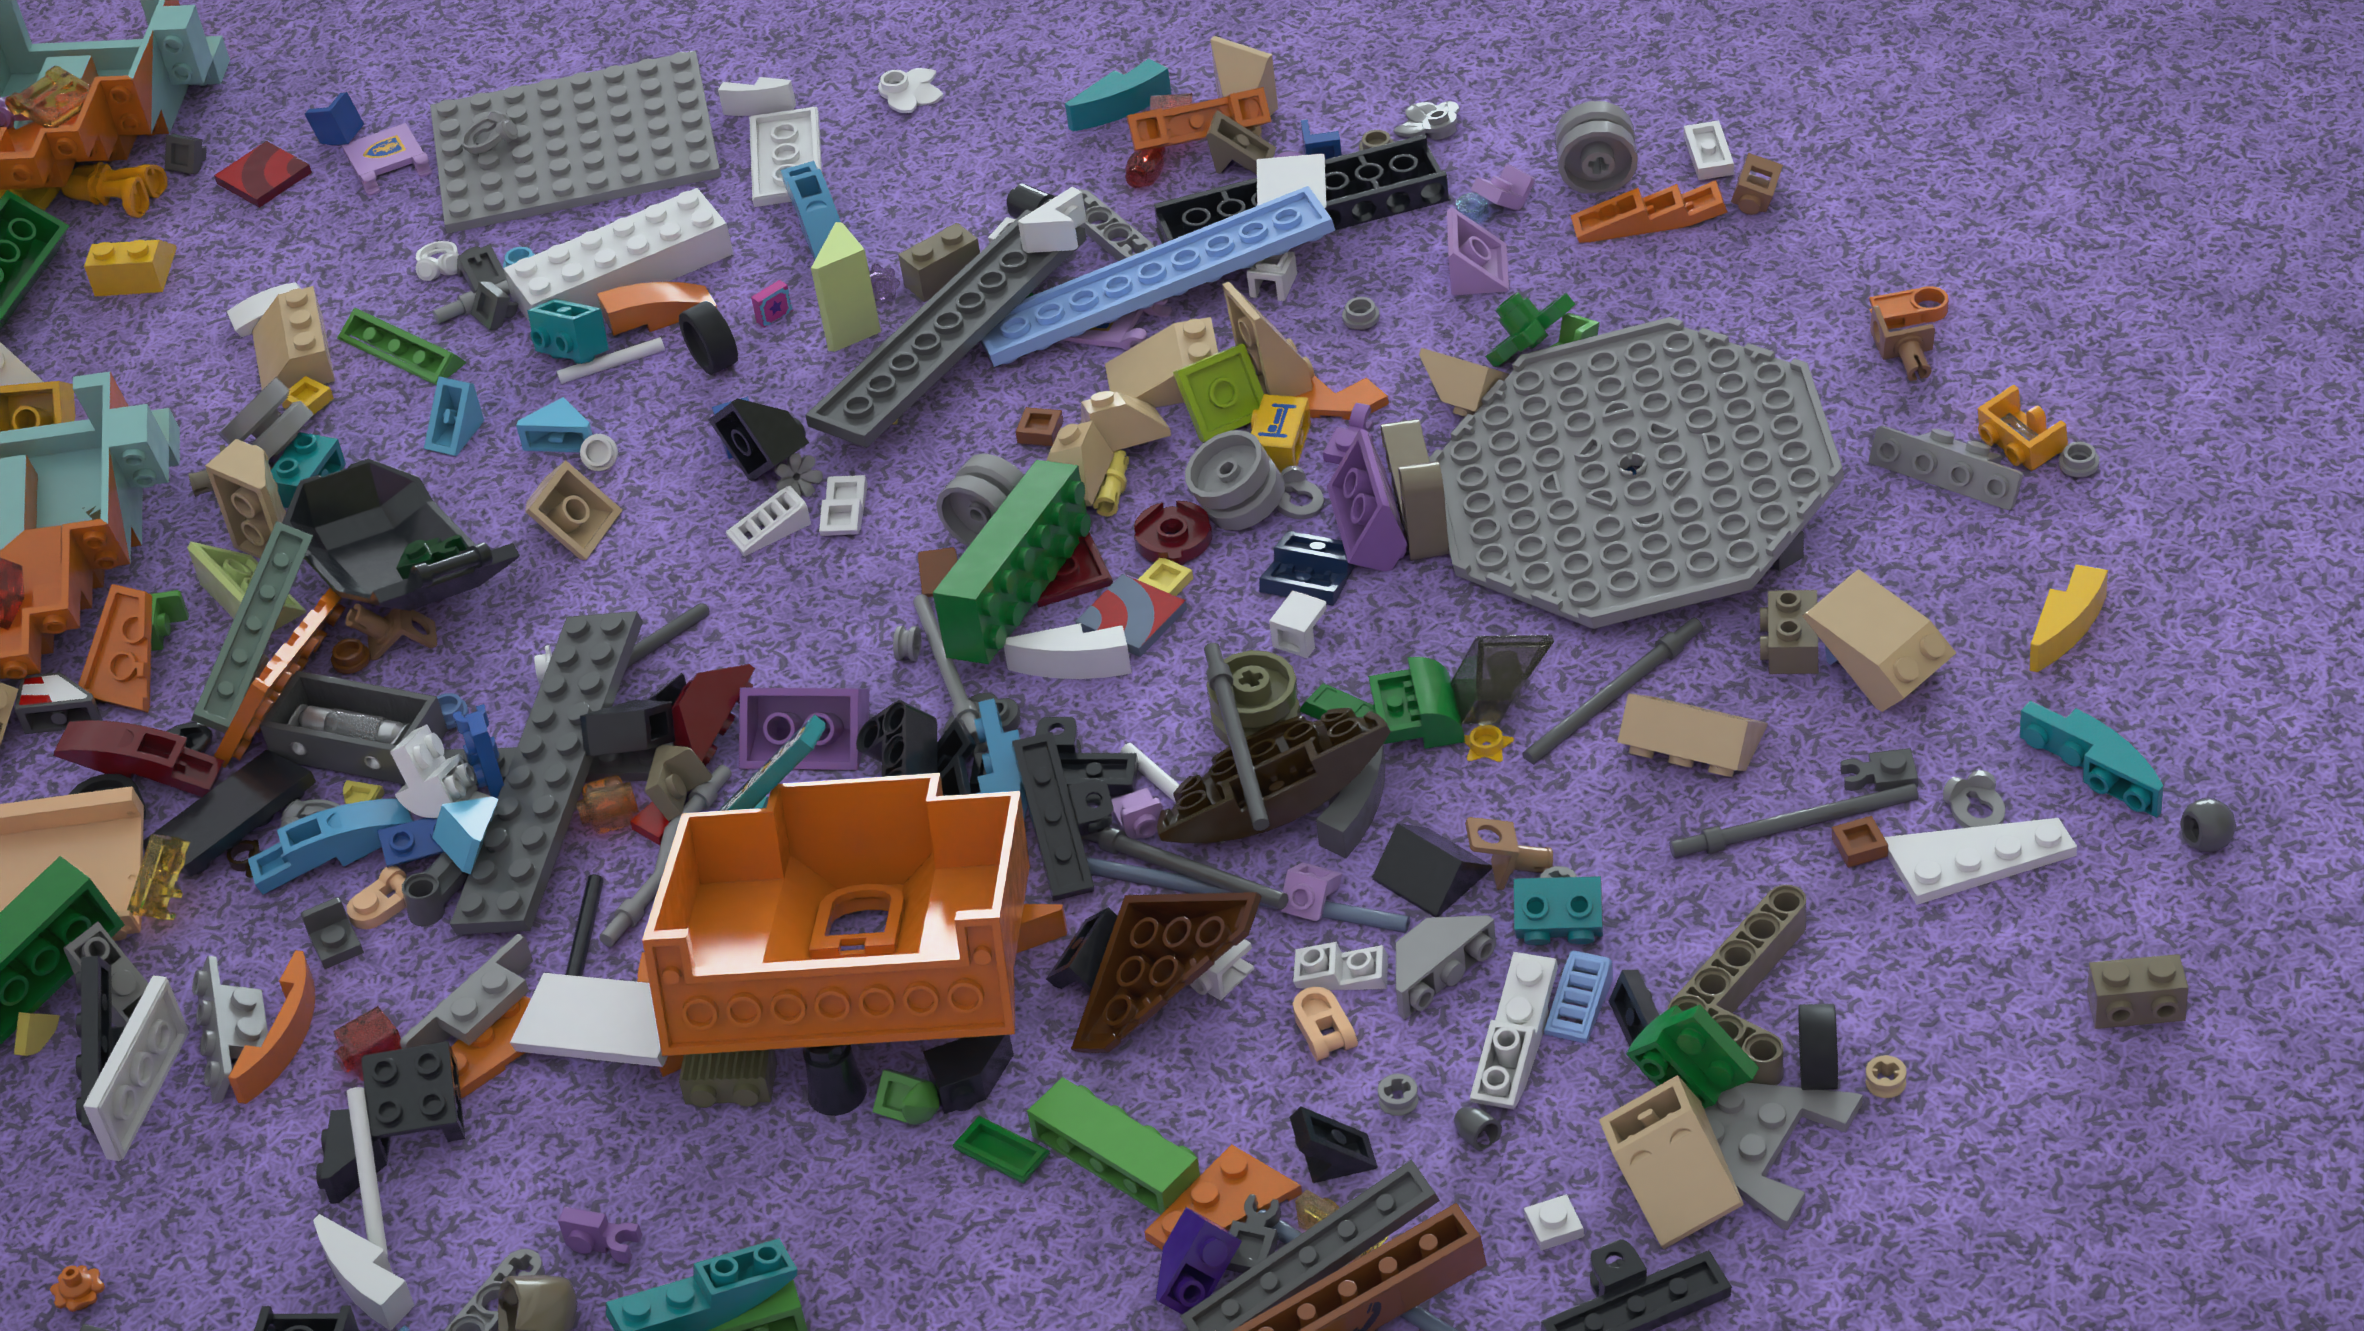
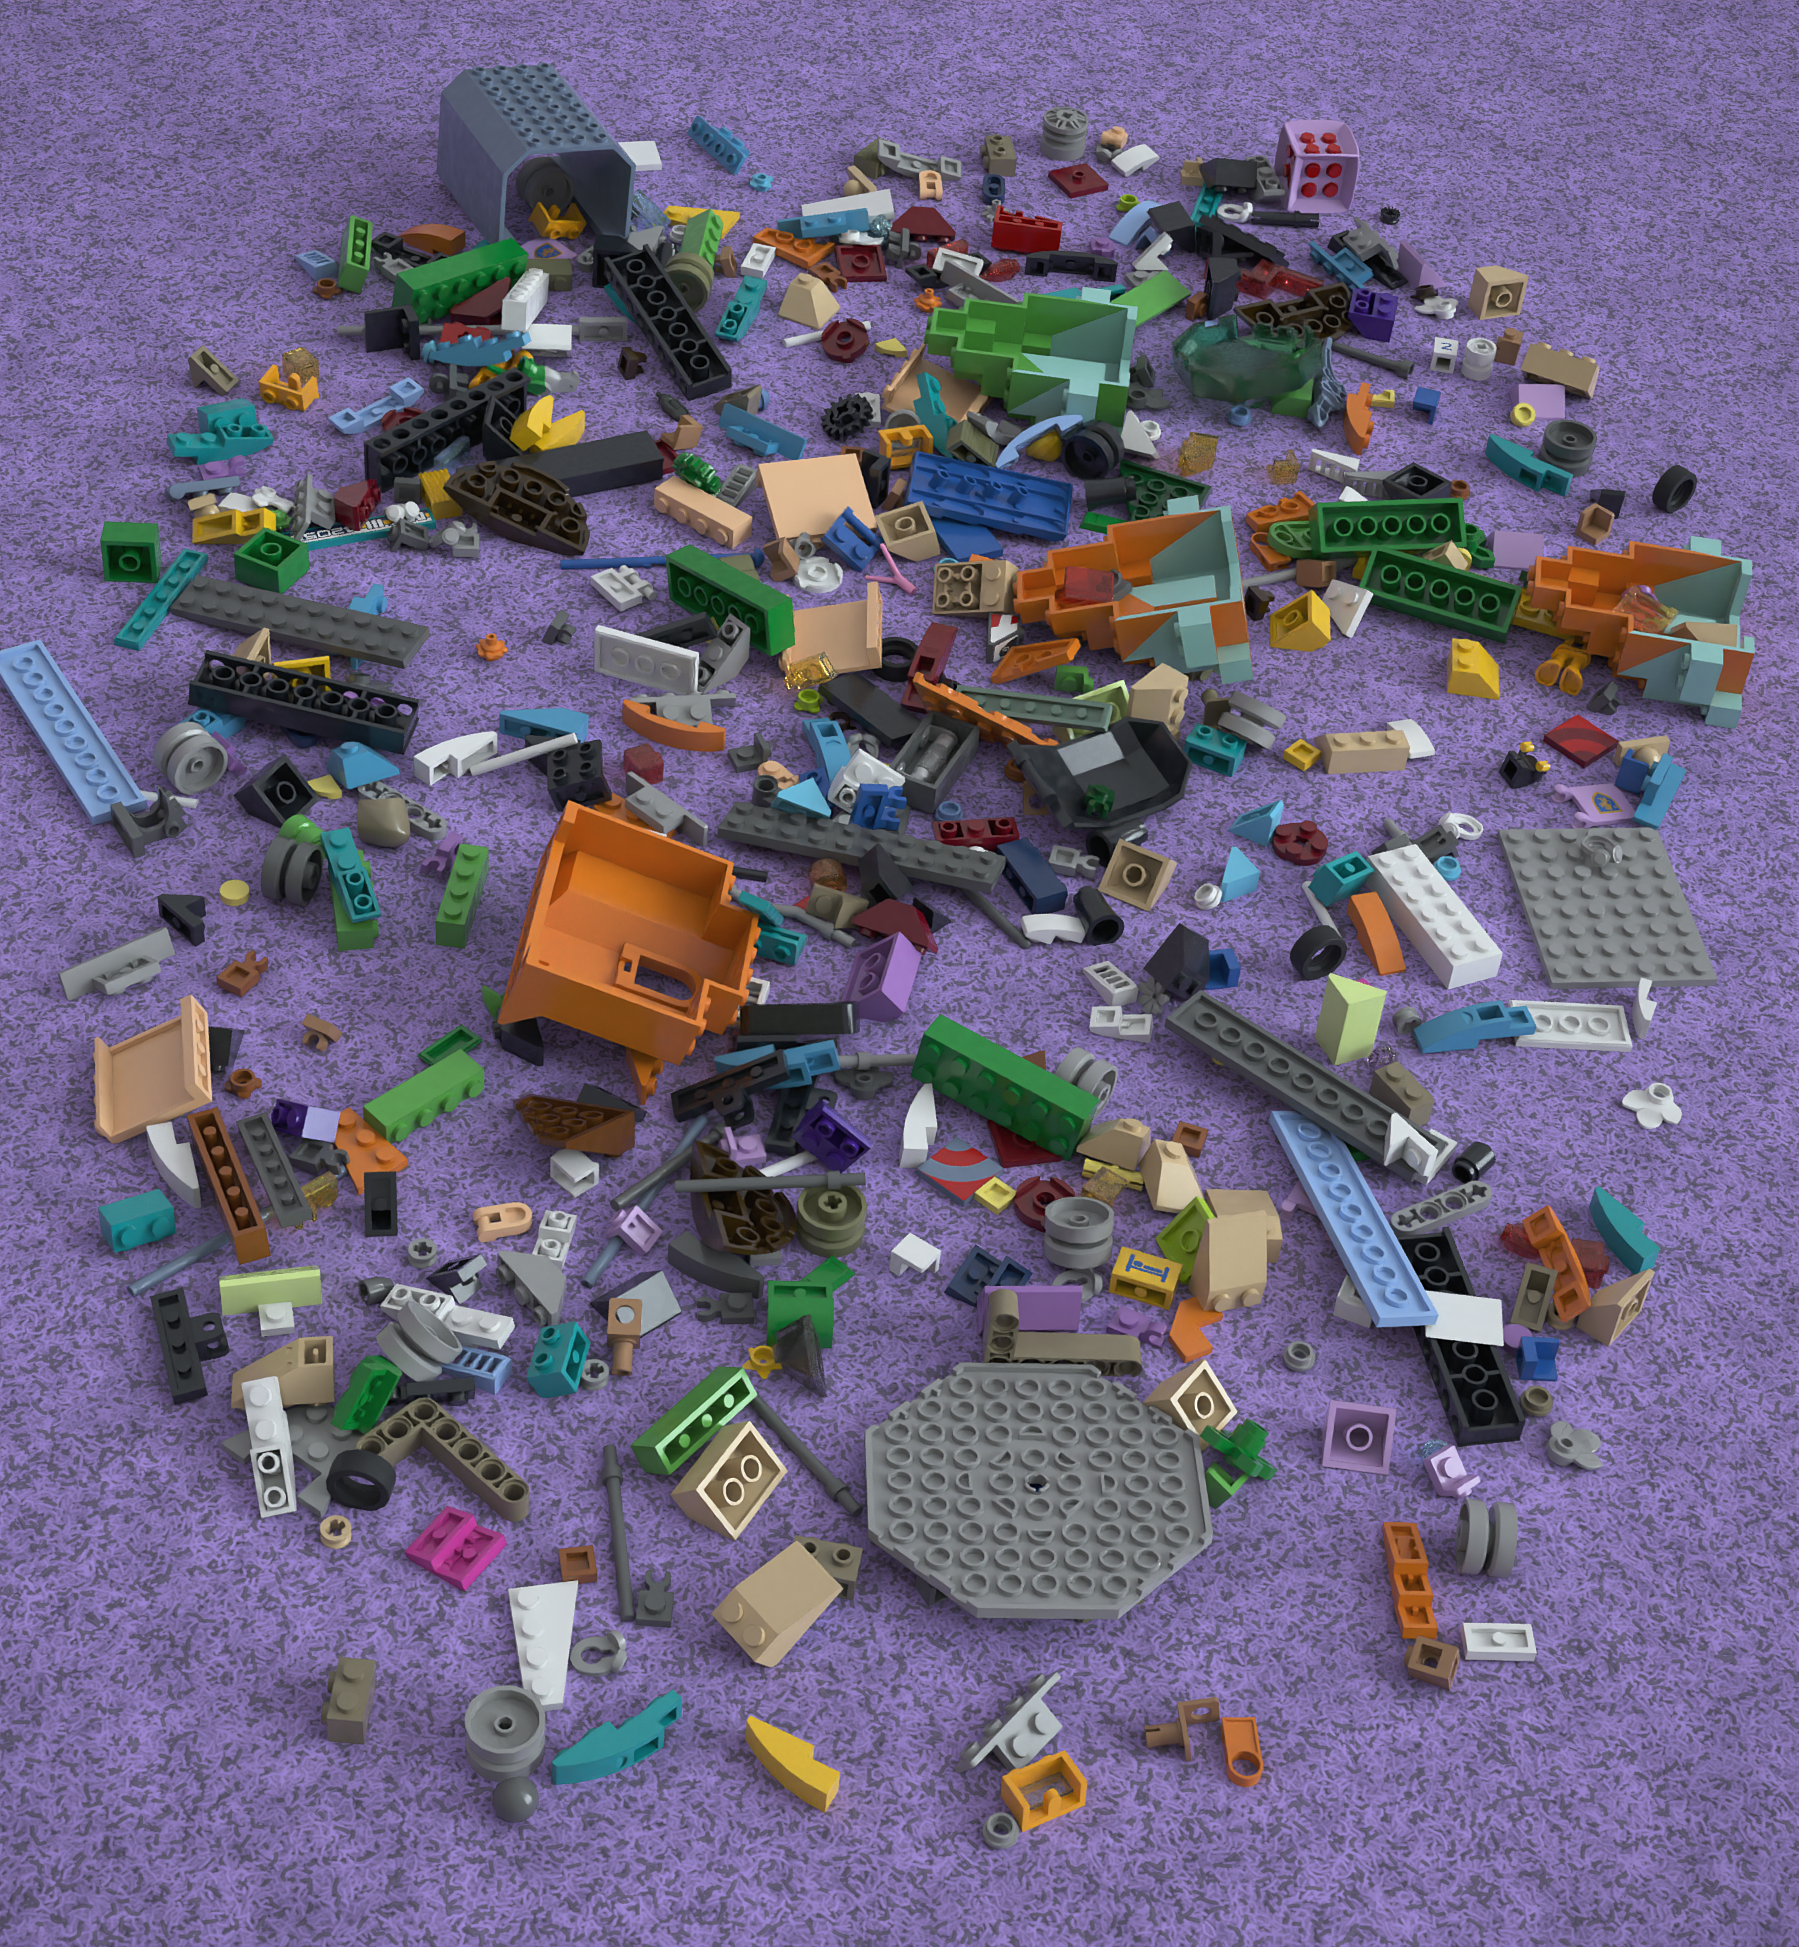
camera: 85 degrees right, 0 degrees up
(29, 1211) = (559, 629): none -> dark grey tile
(106, 43) = (1707, 632): none -> tan slope
(202, 892) = (808, 701): none -> lime plate
(284, 1161) = (543, 722): none -> dark azure slope
(293, 116) = (1645, 749): none -> tan tile
(328, 209) = (1522, 769): none -> black piece
(370, 97) = (1659, 790): none -> dark azure bracket
(421, 356) = (1360, 808): bright green slope -> none
(497, 377) = (1285, 843): none -> dark red plate
(500, 531) = (1104, 841): none -> black plant
(510, 658) = (977, 832): none -> dark red slope
(540, 586) = (1068, 862): none -> light grey plate
(599, 593) = (1032, 877): none -> dark blue brick
(650, 541) = (1097, 916): none -> black plant
(677, 582) = (1047, 926): none -> white slope
(689, 1189) = (462, 896): none -> bright green brick
(802, 271) = (1406, 1020): none -> light grey bush
(998, 1295) = (319, 1029): none -> medium nougat tile
(1125, 707) = (831, 1137): none -> dark purple slope
(1149, 480) = (1104, 1186): none -> clear yellow panel
(1414, 782) = (731, 1307): none -> dark grey plate
(1436, 1037) = (459, 1277): none -> black slope
(1513, 1237) = (247, 1290): none -> yellowish green slope
(1585, 1022) = (419, 1342): none -> light grey wheel
(1618, 768) = (693, 1420): none -> bright green brick
(1798, 1152) = (270, 1447): none -> white slope
(1868, 959) = (456, 1547): none -> dark pink slope
(2131, 843) = (504, 1733): none -> light grey wheel

